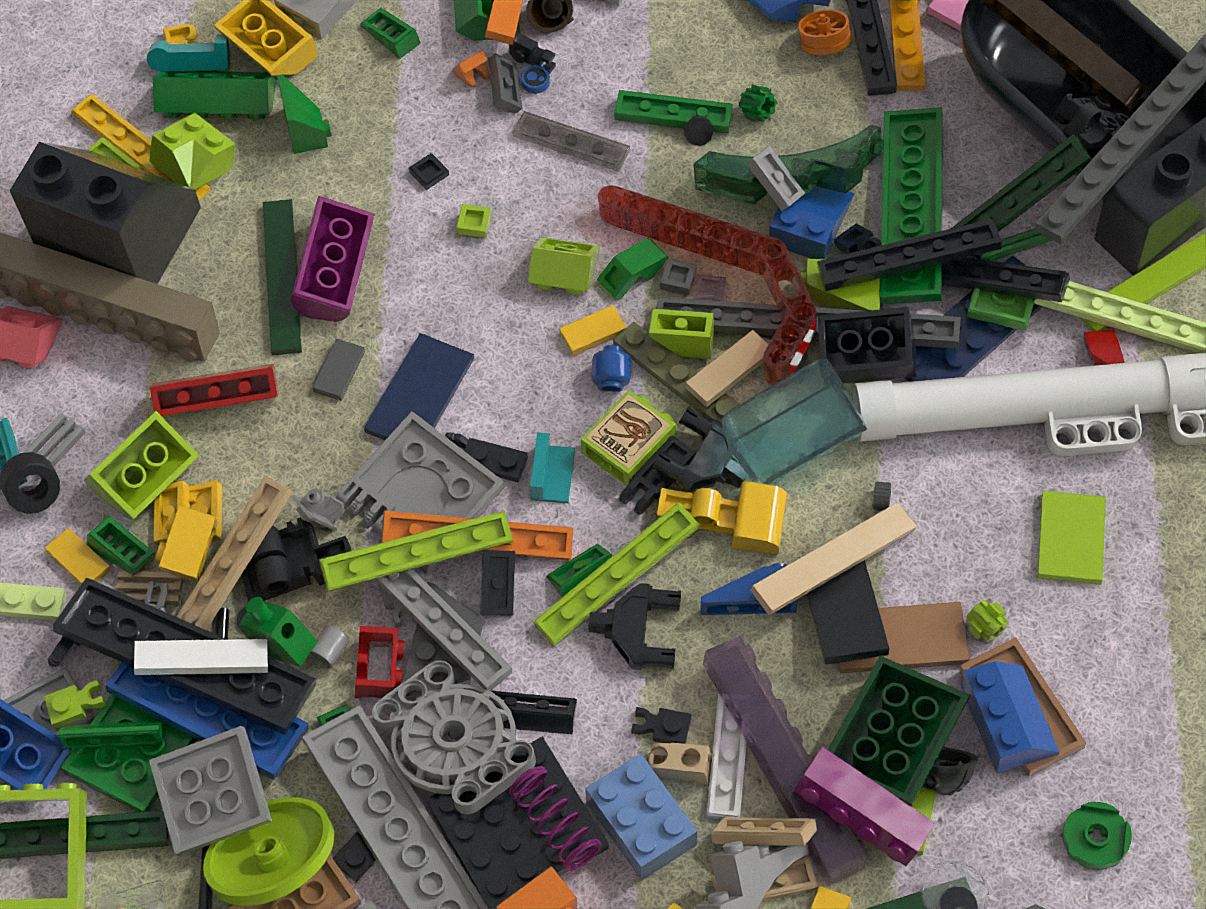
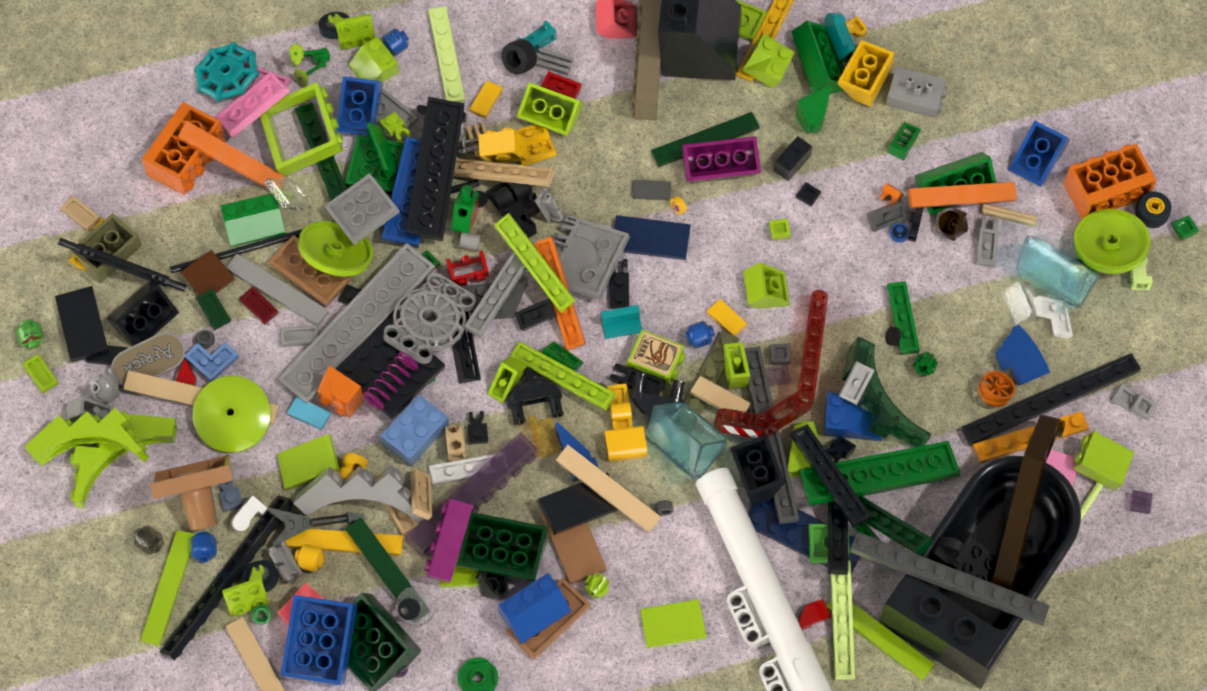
camera: 70 degrees right, 5 degrees up
(102, 441) = (561, 85): none -> red plate
(109, 527) = (506, 105): green slope -> none
(200, 657) = (433, 175): white tile -> none
(214, 390) = (611, 128): red brick -> none
(366, 169) = (792, 158): none -> black brick
(381, 339) = (678, 205): none -> yellow tile
(571, 141) = (860, 267): clear smoke tile -> none
(594, 656) = (506, 379): none -> lime slope
(637, 261) = (779, 326): green slope -> none
(706, 630) = (544, 436): none -> clear yellow panel

